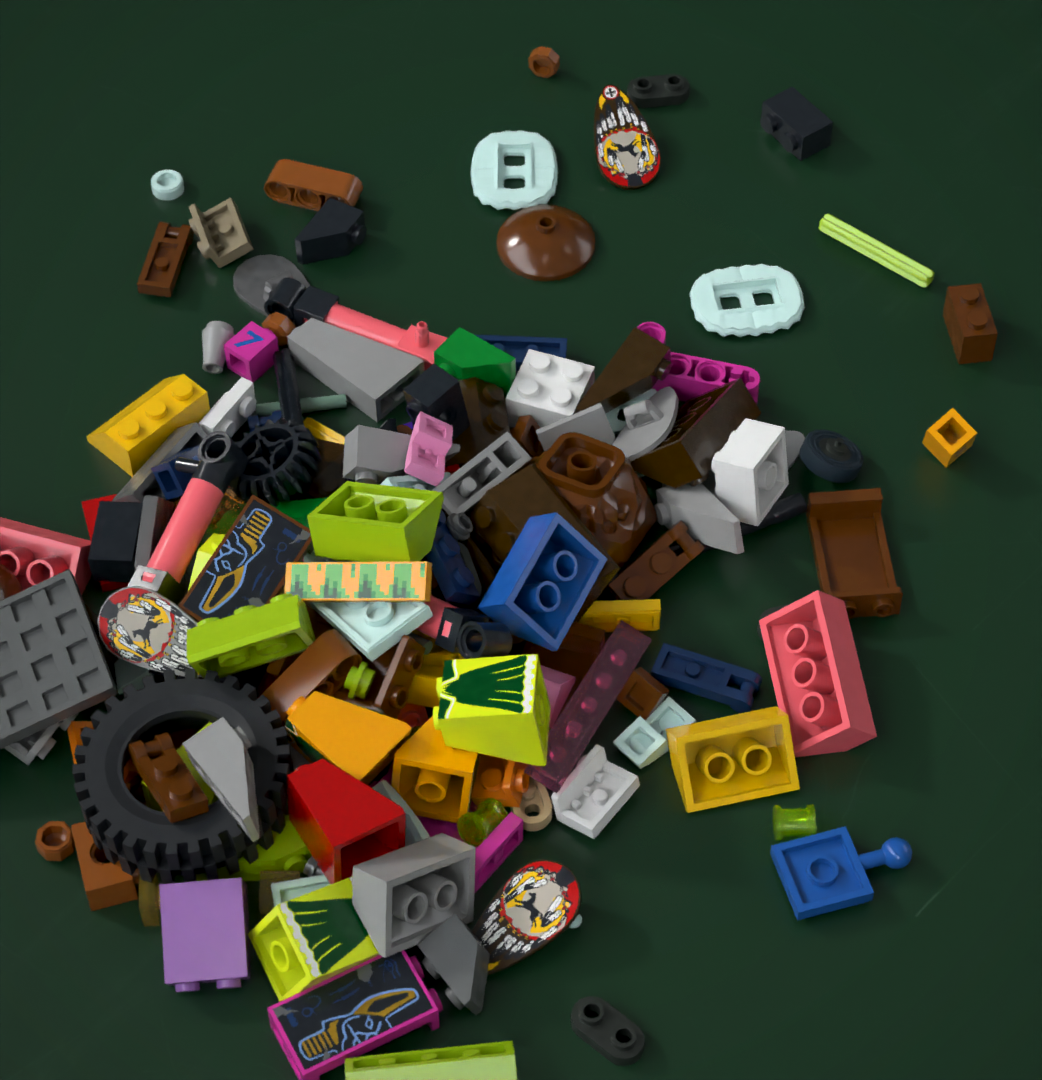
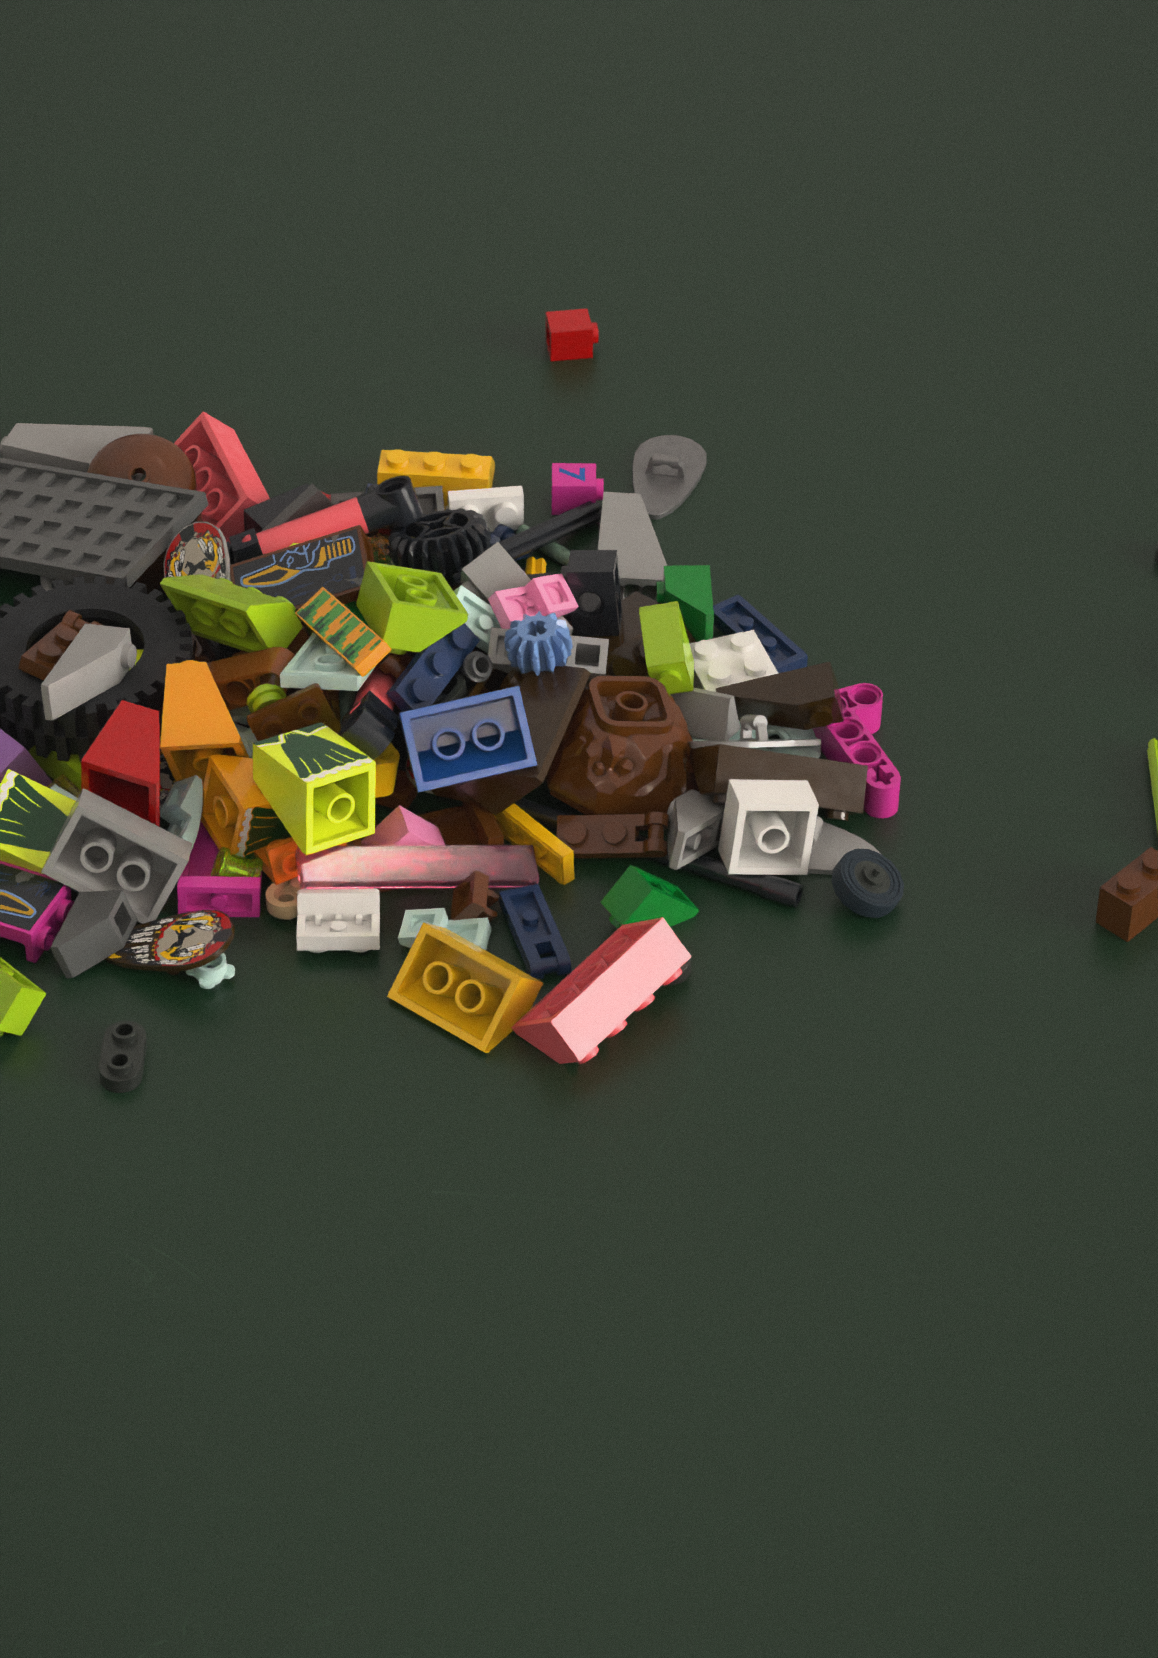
camera: 50 degrees right, 10 degrees down
(77, 246) = (570, 334): none -> red brick
(164, 259) = (618, 388): reddish brown plate -> none
(167, 185) = (703, 346): light aqua tile -> none
(213, 341) = (542, 475): light grey cone -> none
(220, 232) = (679, 400): dark tan bracket -> none
(280, 326) = (616, 483): dark orange tile -> none
(303, 303) = (661, 498): piece -> none
(311, 185) = (798, 423): dark orange beam -> none
(331, 233) = (756, 459): black slope -> none
(488, 473) = (538, 643): none -> medium blue gear
(490, 171) = (961, 513): light aqua piece -> none
(530, 408) = (667, 647): none -> lime slope
(544, 62) = (1124, 471): dark orange tile -> none
(545, 243) = (915, 592): reddish brown dish -> none
(624, 141) = (1085, 567): shield -> none
(741, 594) = (646, 897): none -> green slope
(743, 284) = (1014, 731): light aqua piece -> none
(793, 821) = (438, 1059): clear neon green bush -> none
(828, 874) = (412, 1104): blue plate -> none
(853, 551) = (776, 956): reddish brown panel -> none
(949, 437) = (973, 942): light orange brick -> none

